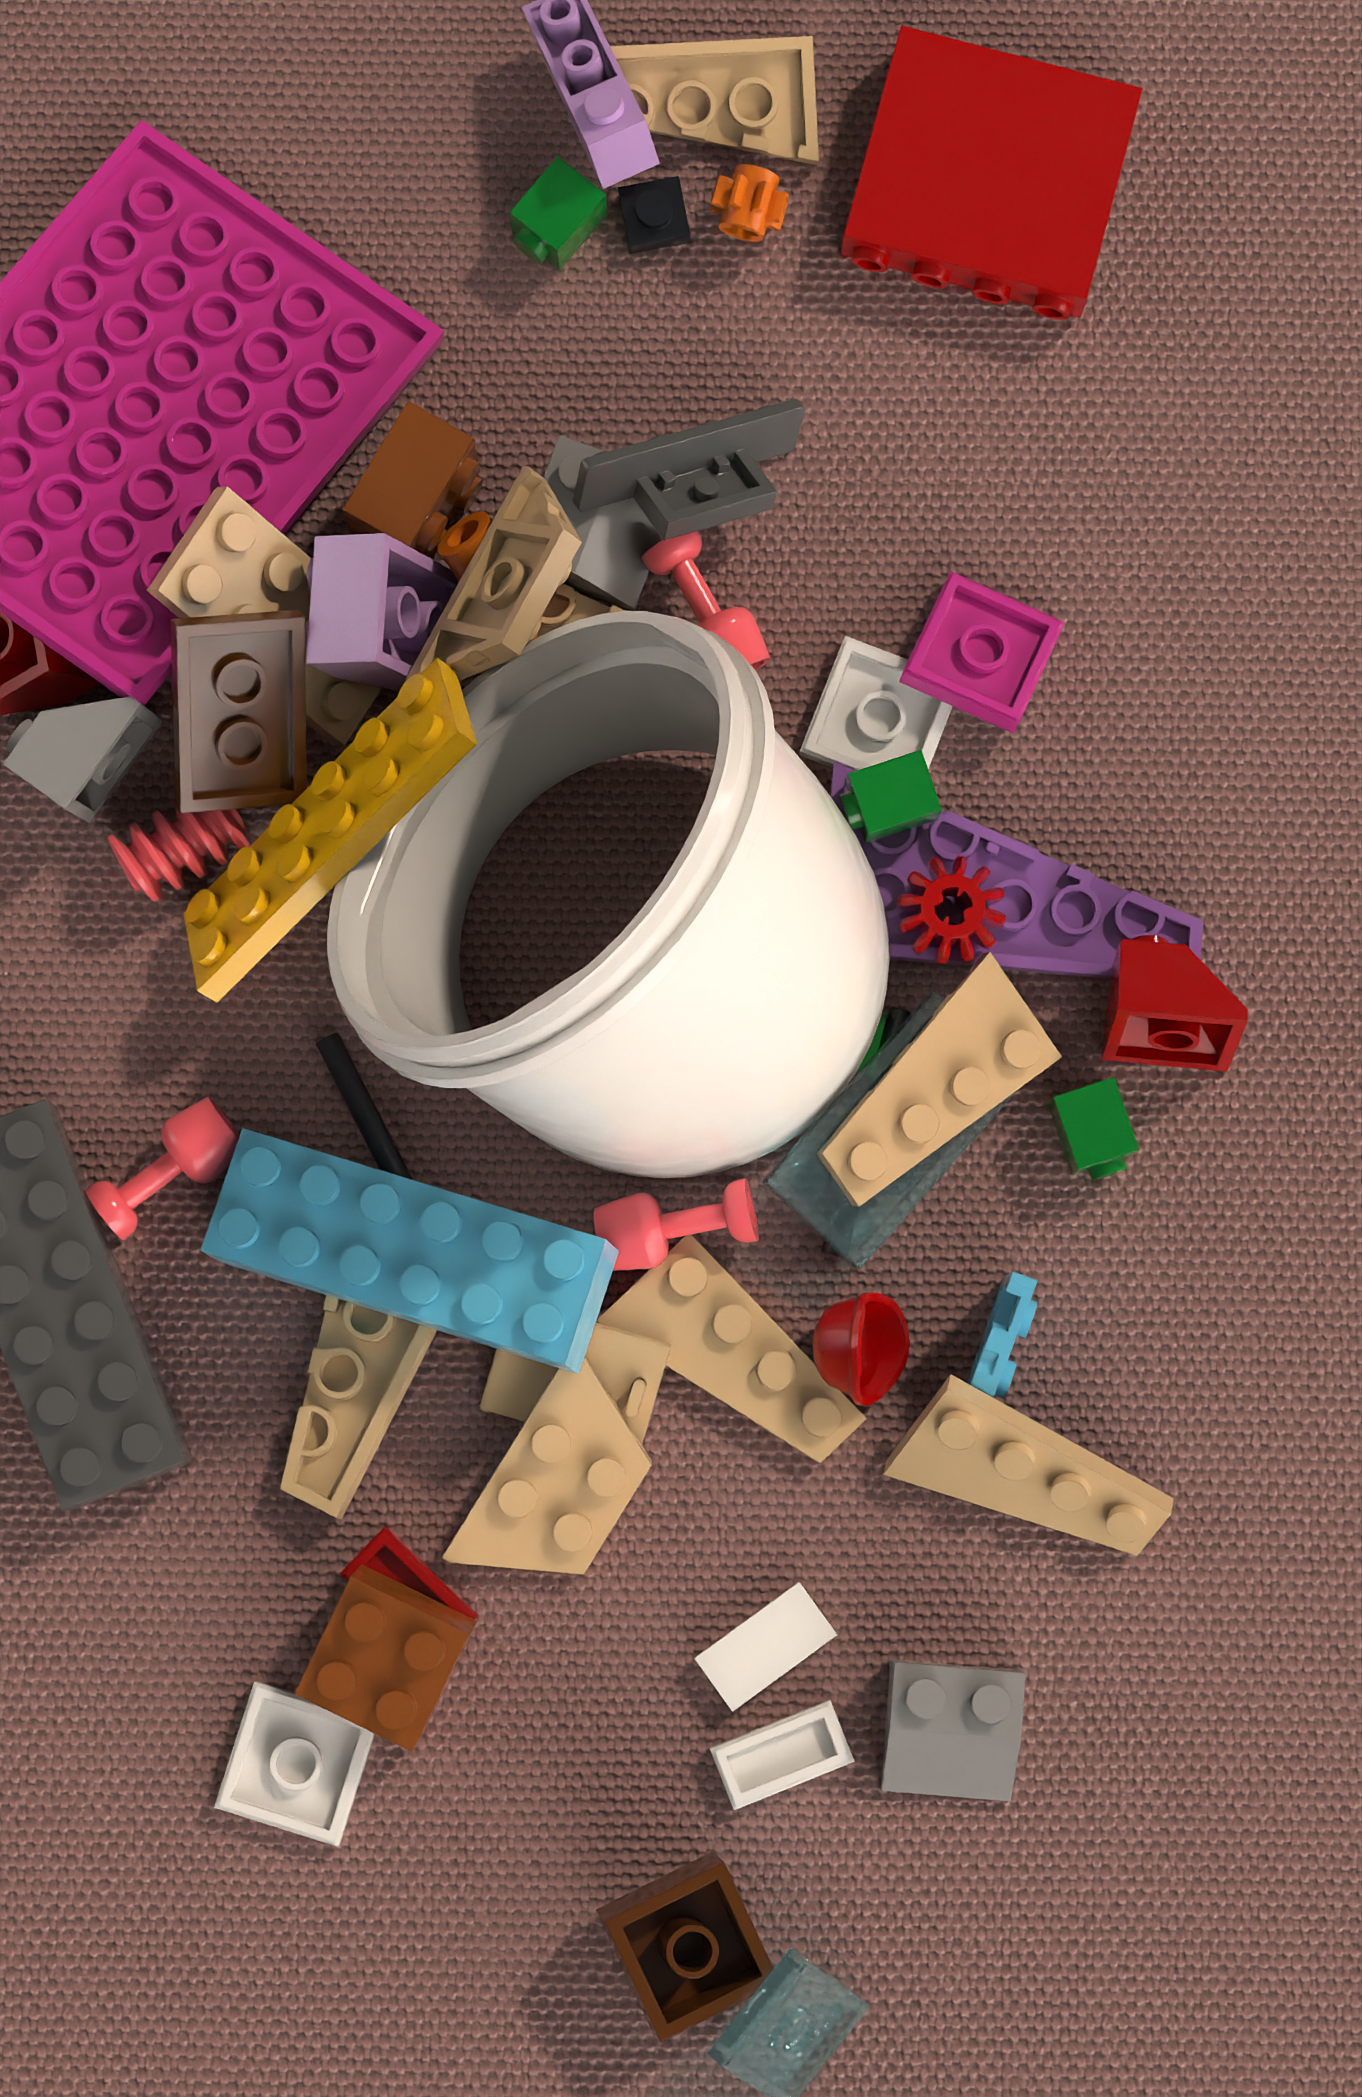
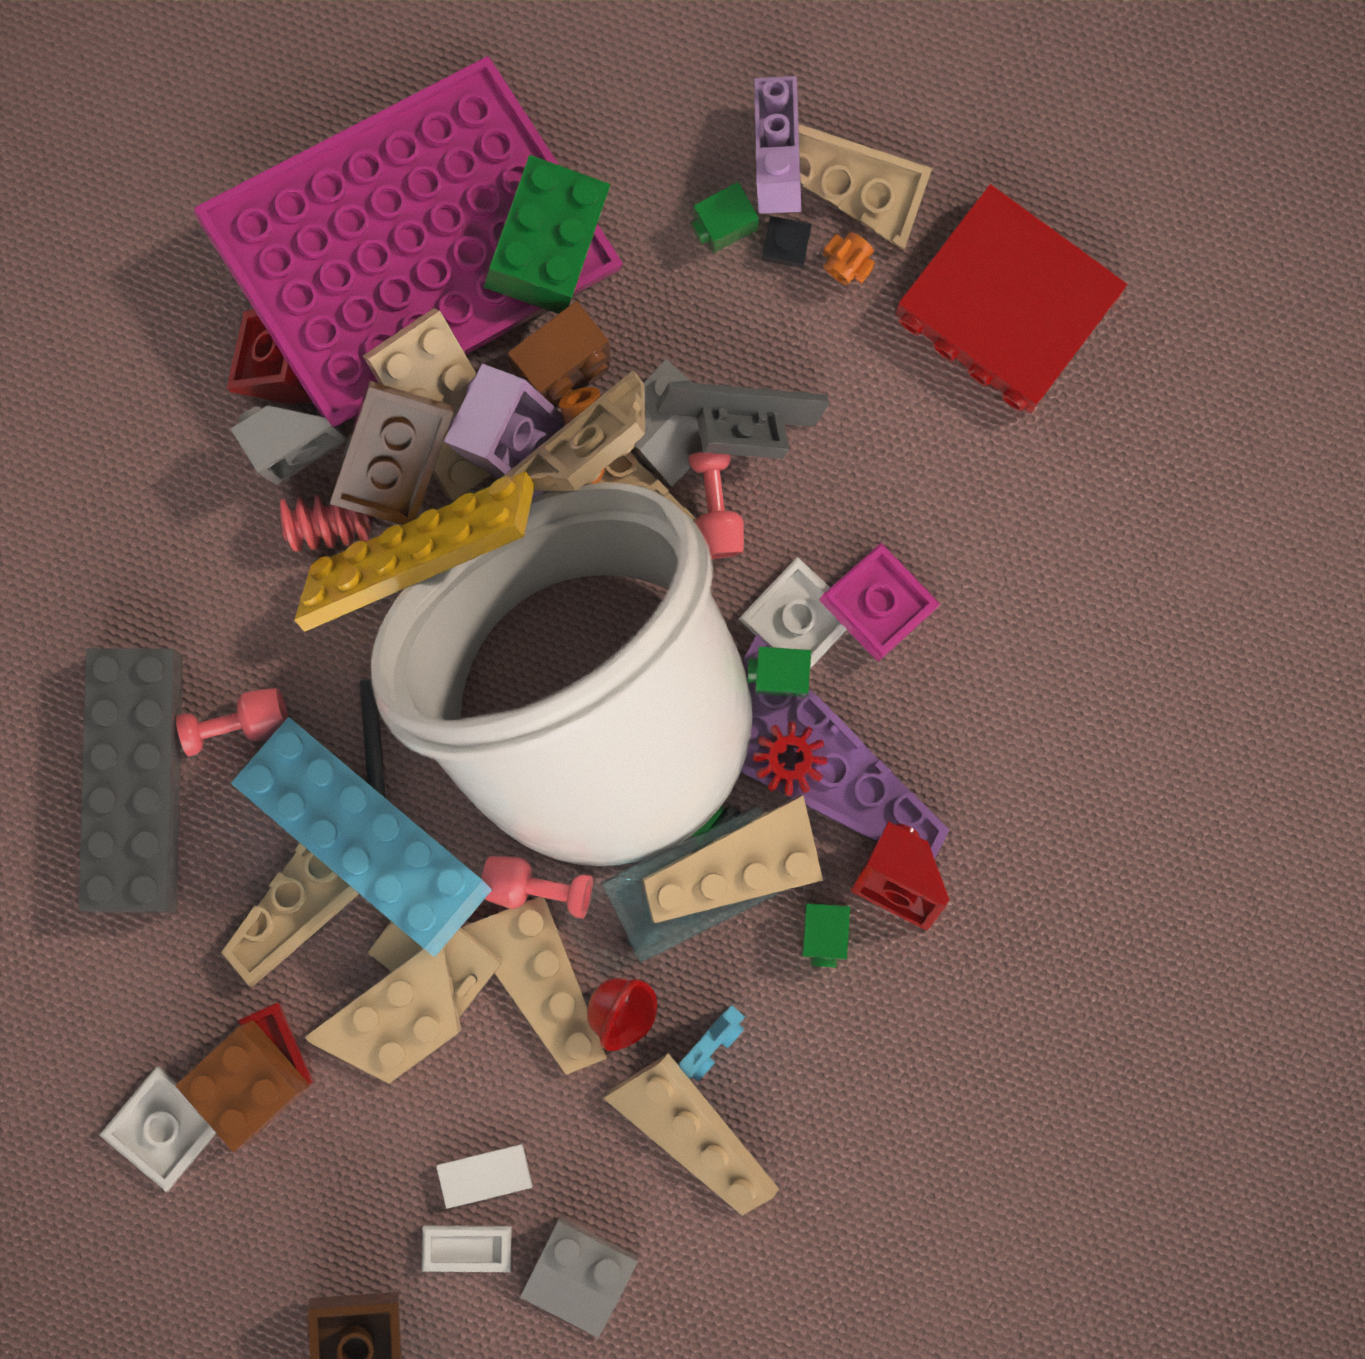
camera: 25 degrees right, 0 degrees up
(328, 330) = (547, 235): none -> green brick

